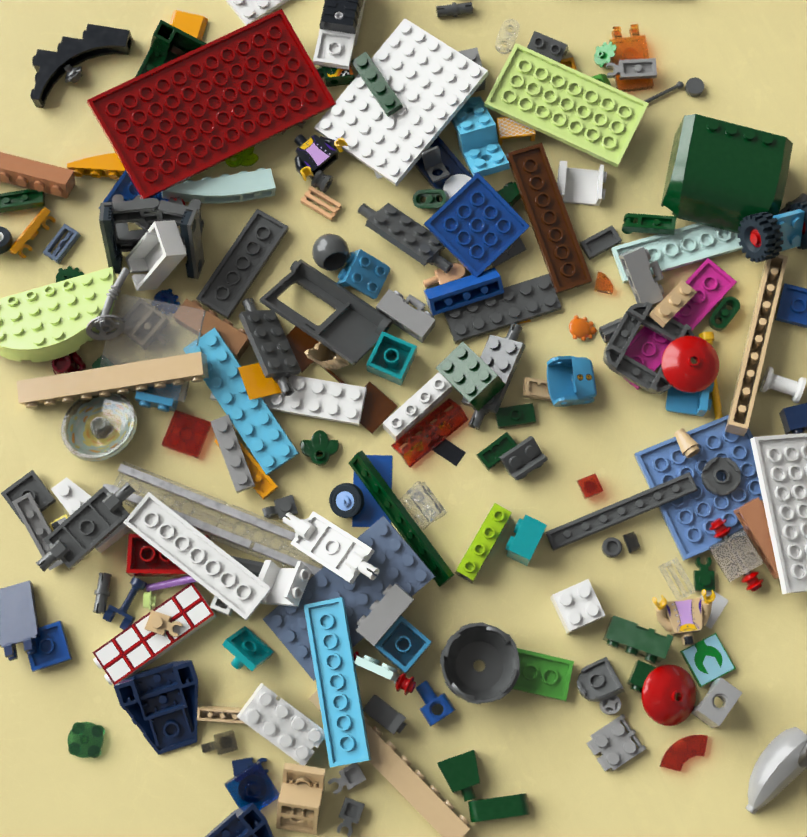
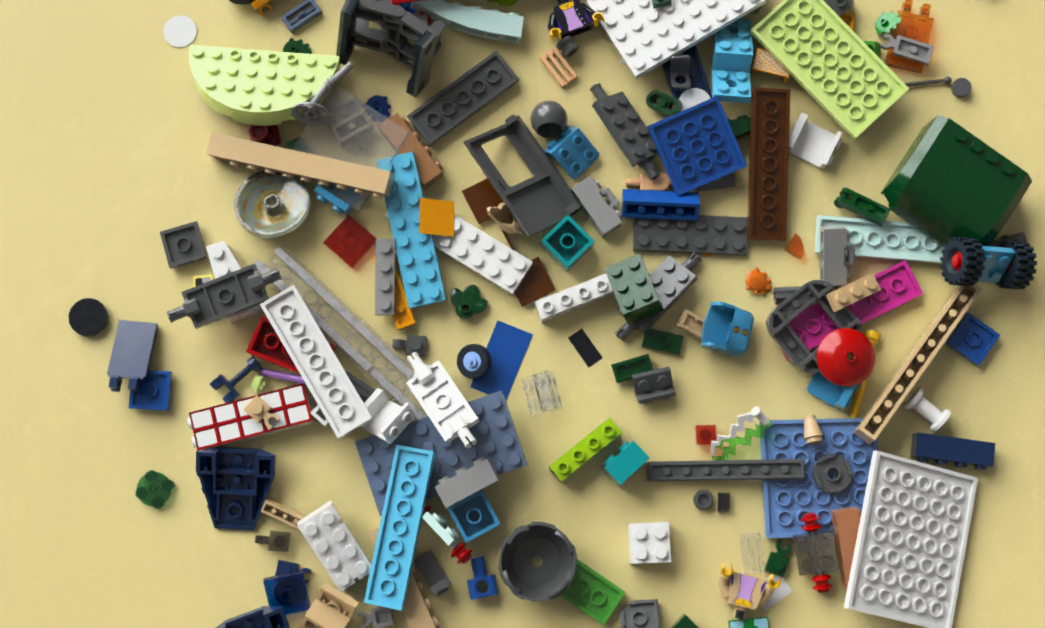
camera: 15 degrees right, 5 degrees up
(35, 523) = (180, 272): light grey plate -> none
(102, 593) = (218, 360): dark grey pin -> none
(157, 254) = (388, 60): white piece -> none
(247, 649) = (330, 464): teal tile -> none
(270, 345) = (458, 187): dark grey plate -> none
(400, 517) = (517, 397): dark green plate -> none
(431, 434) = (578, 328): clear red fence -> none
(600, 242) = (809, 205): dark grey tile -> none
(617, 480) = (733, 440): none -> piece
(637, 640) = (692, 595): dark green wedge -> none
(723, 314) = (898, 319): dark green plate -> none

